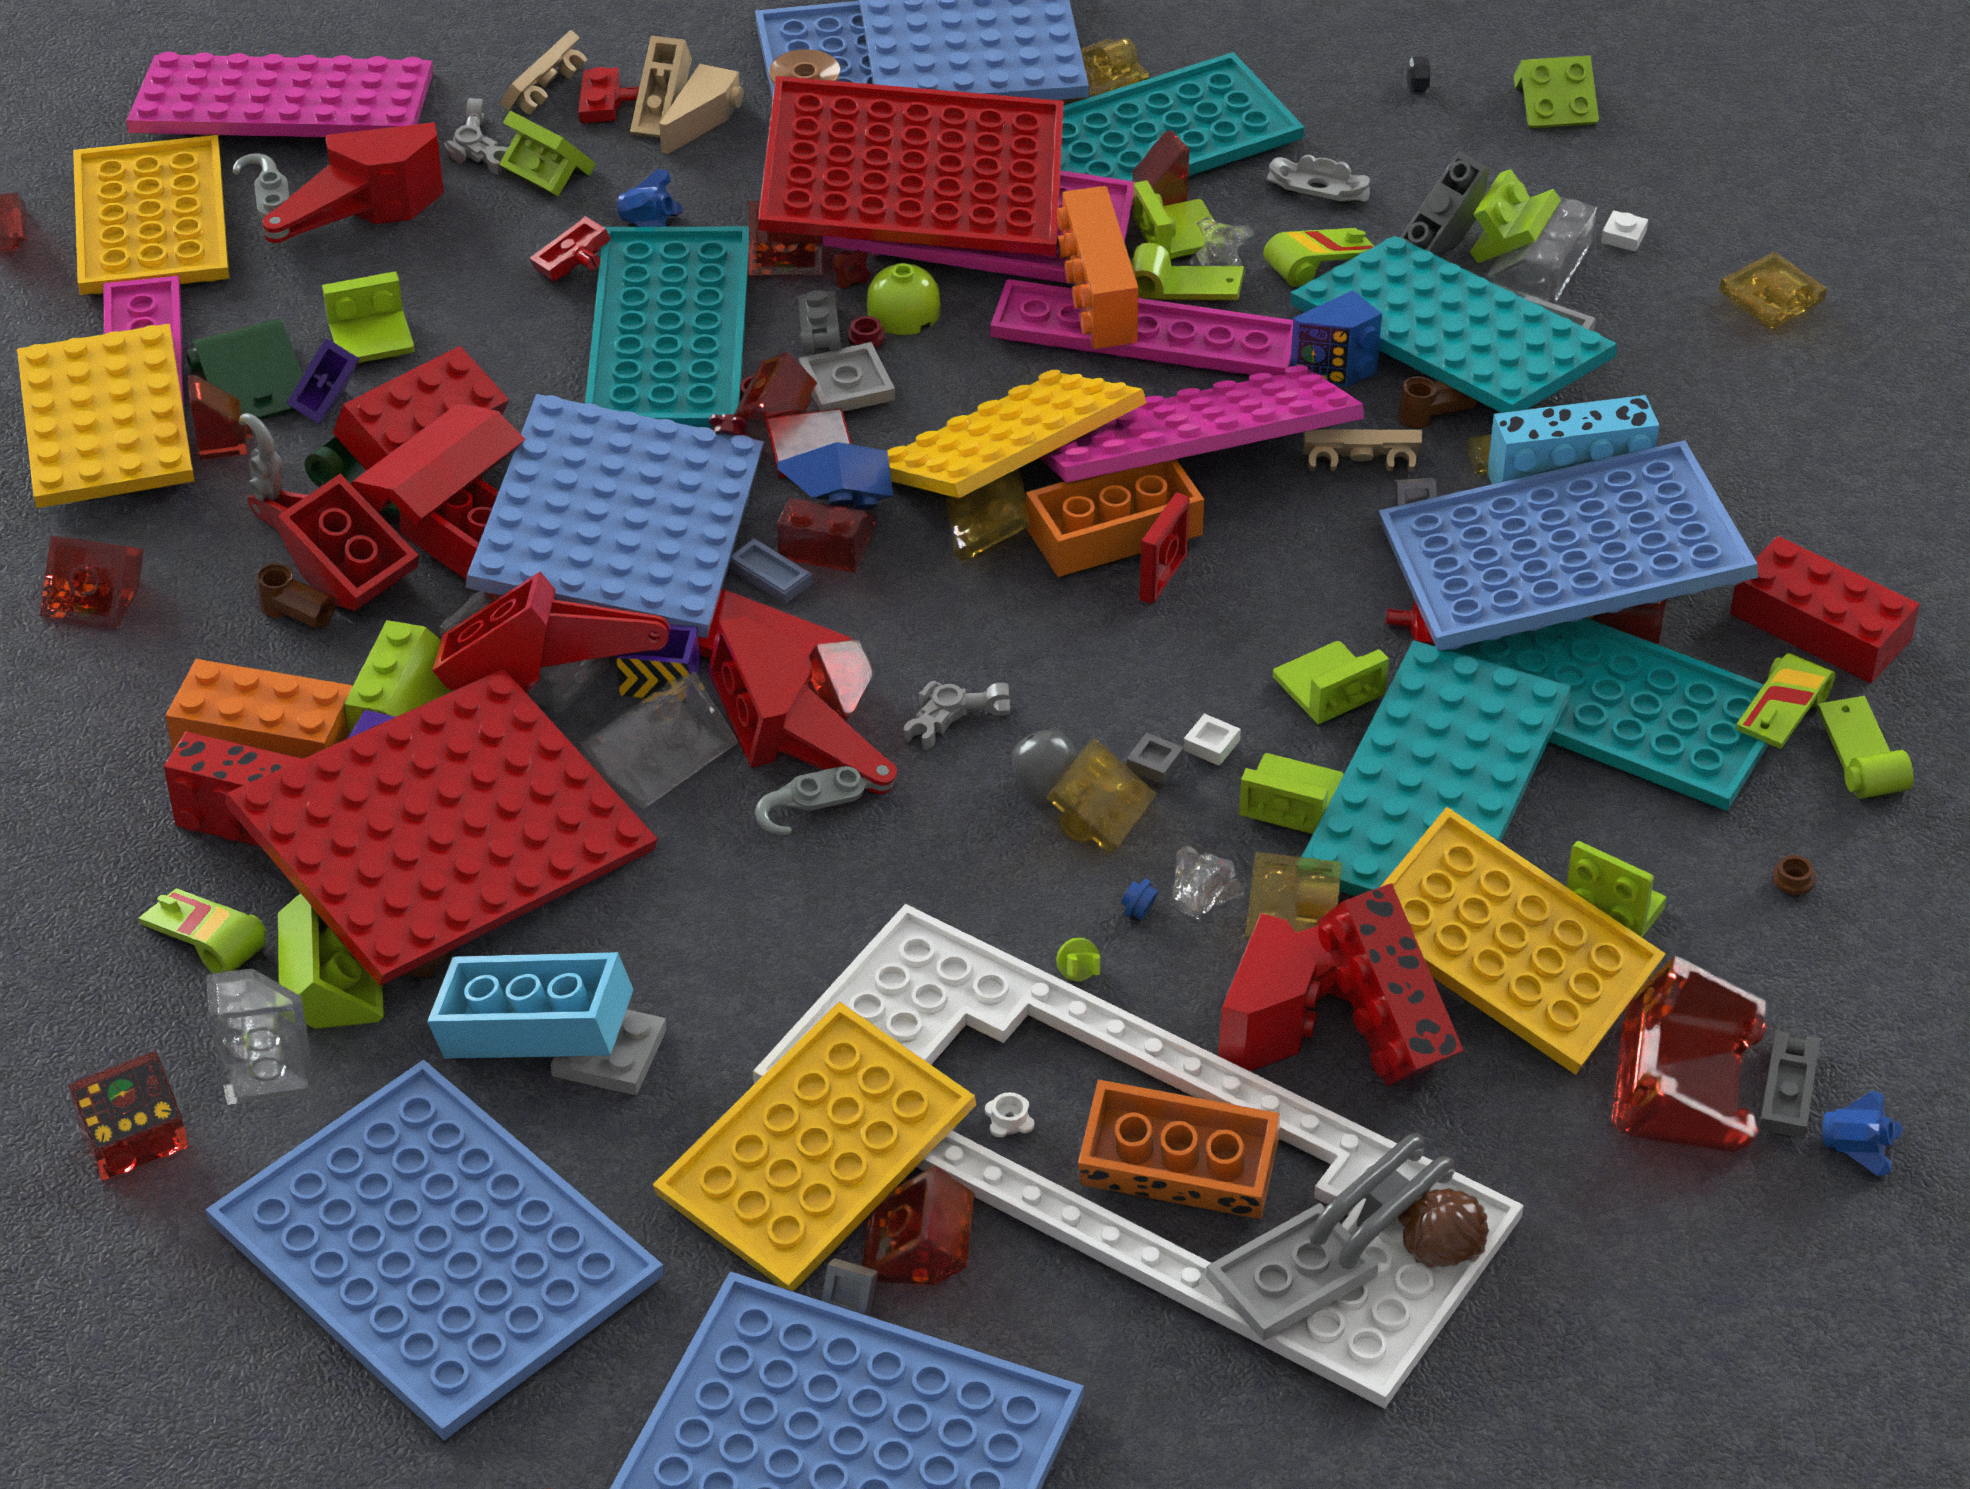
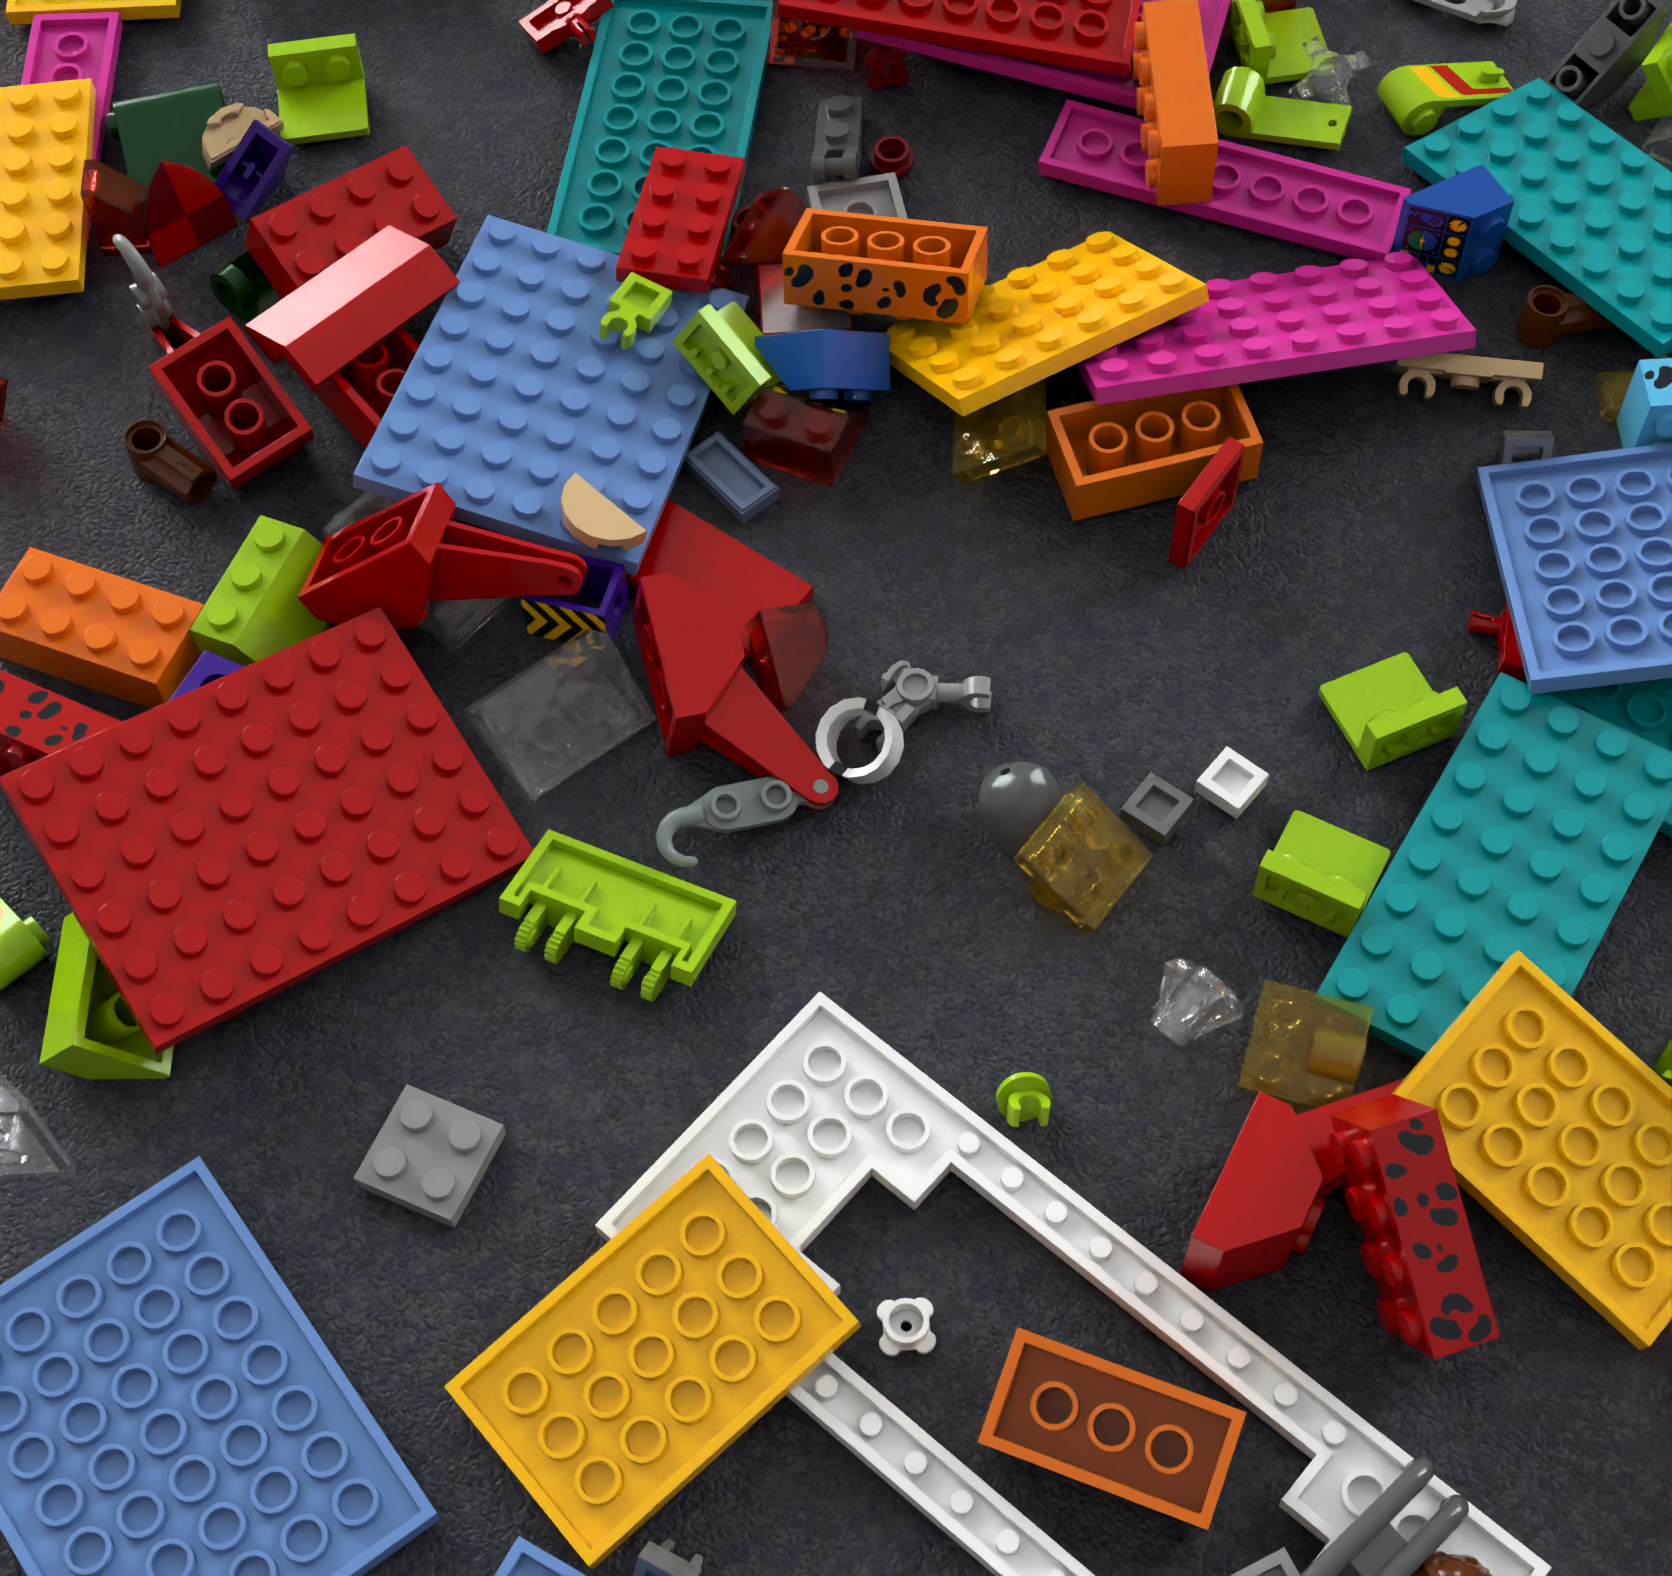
camera: 10 degrees right, 15 degrees up
(277, 407) = (183, 211): none -> shield
(296, 355) = (227, 129): none -> tan tile
(531, 1005) = (334, 1104): medium azure brick -> none
(672, 592) = (596, 519): none -> tan tile
(674, 447) = (633, 306): none -> lime plate
(699, 386) = (681, 219): none -> red plate
(723, 864) = (613, 900): none -> lime hinge
(755, 477) = (725, 354): none -> lime bracket
(877, 402) = (885, 266): none -> orange brick
(896, 715) = (833, 723): none -> white piece
(904, 299) = (942, 115): lime cylinder -> none
(920, 1230) = (767, 1503): clear red slope -> none
(1139, 899) = (1111, 1015): blue plate -> none

